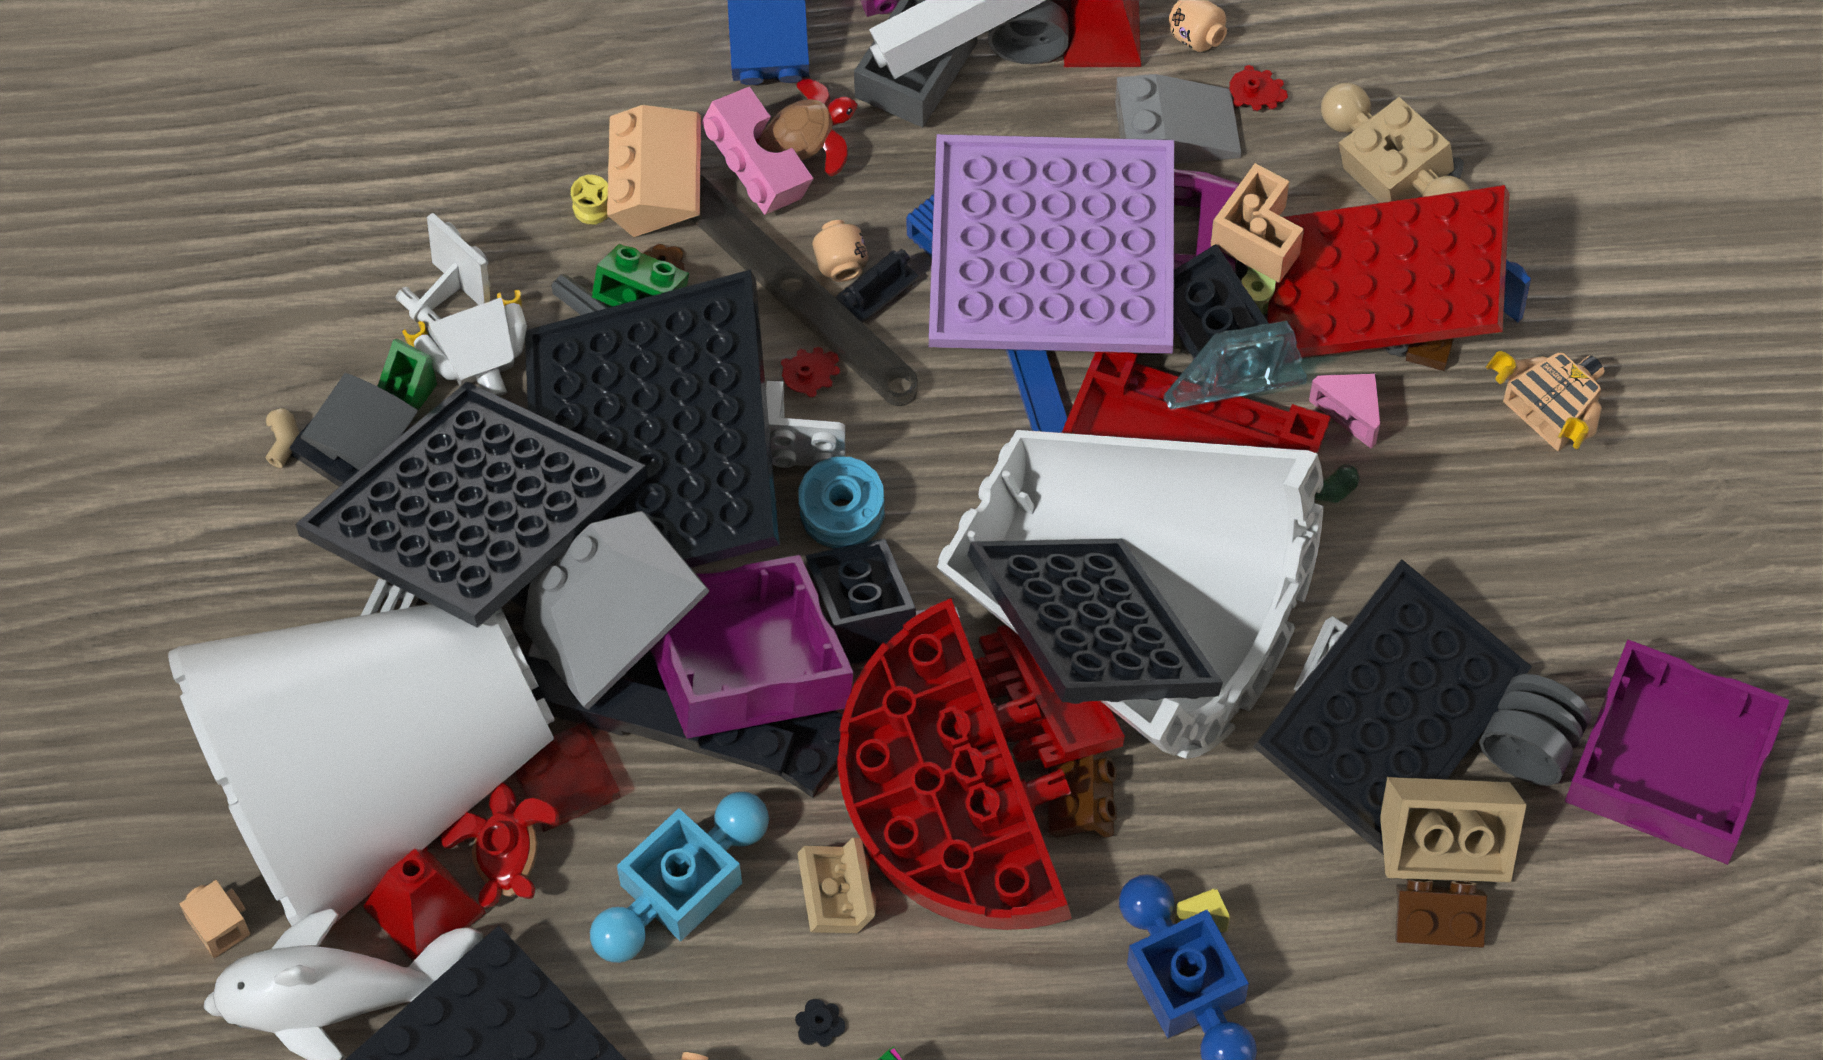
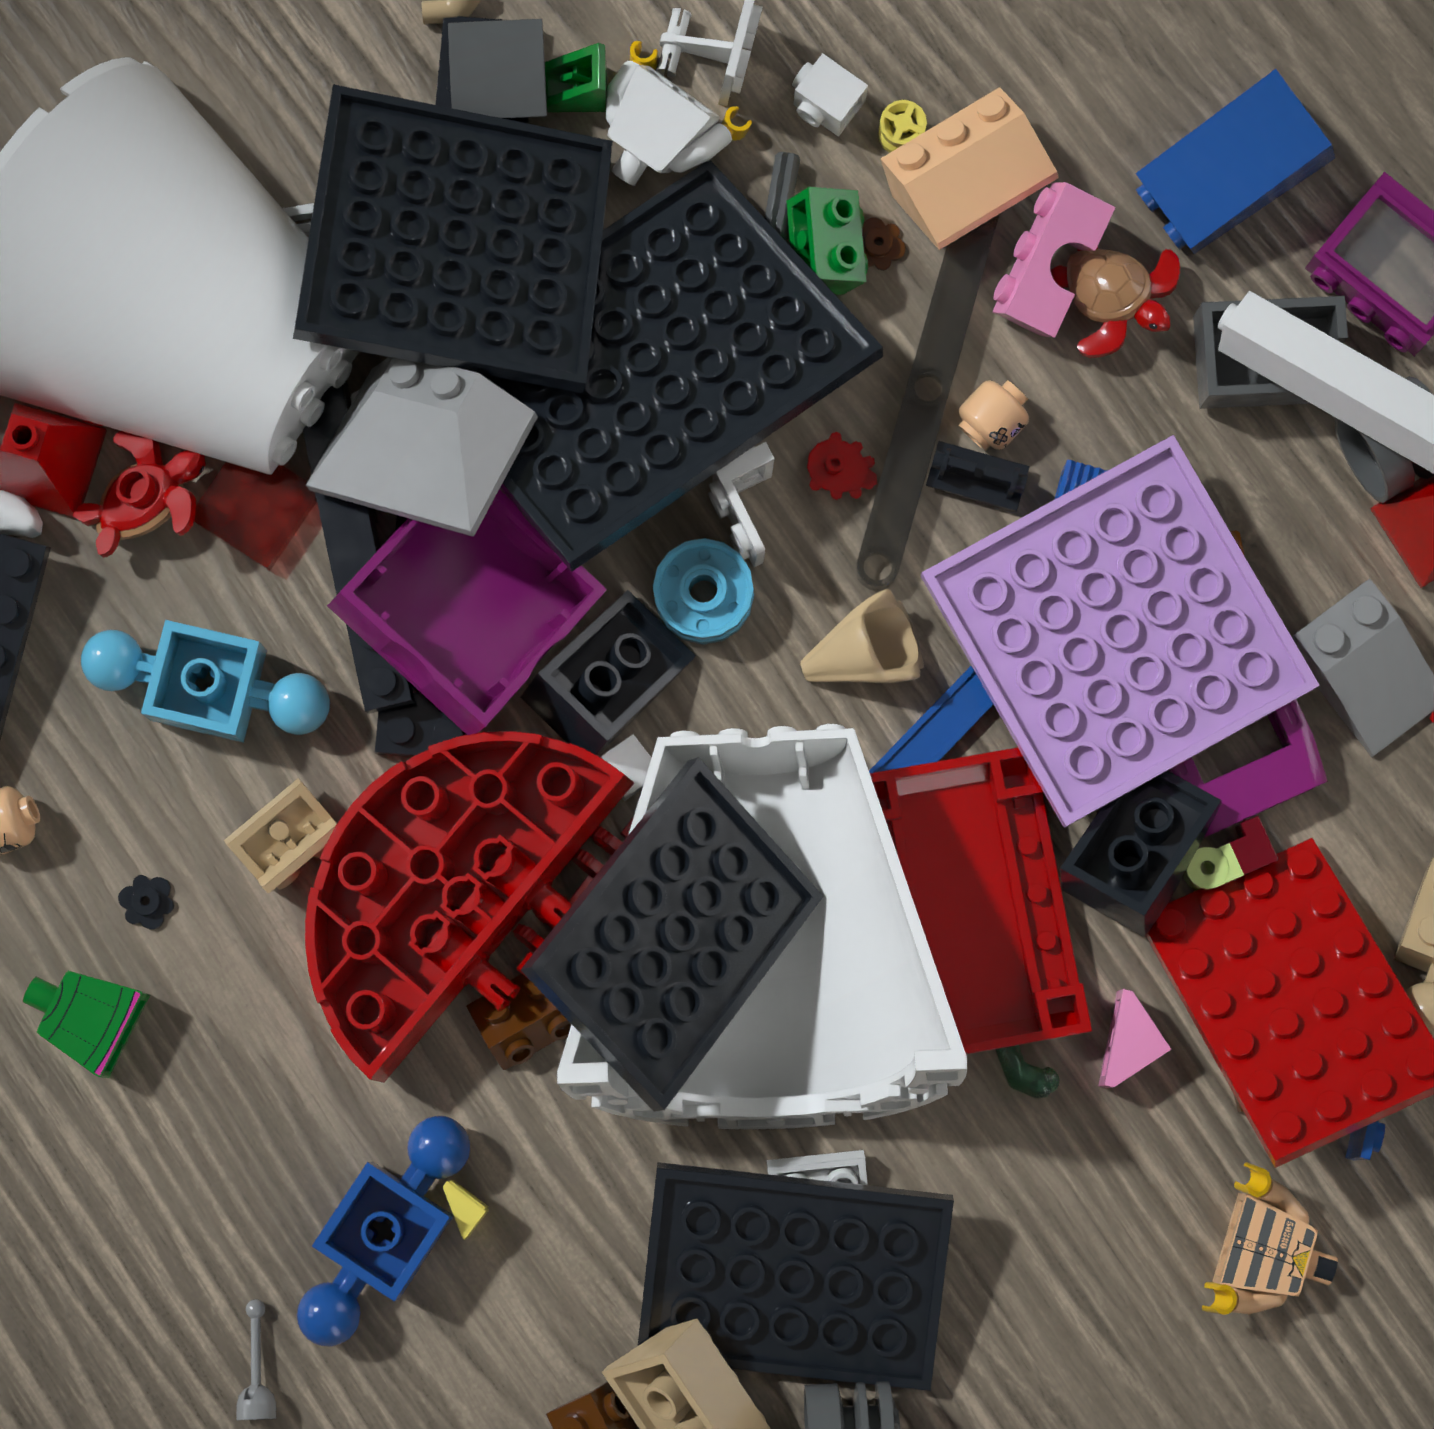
camera: 55 degrees right, 20 degrees up
(533, 230) = (828, 94): none -> white brick
(954, 419) = (868, 646): none -> tan hat
(1240, 365) = (1086, 905): clear light blue wing -> none
(1252, 227) = (1255, 826): light nougat brick -> none

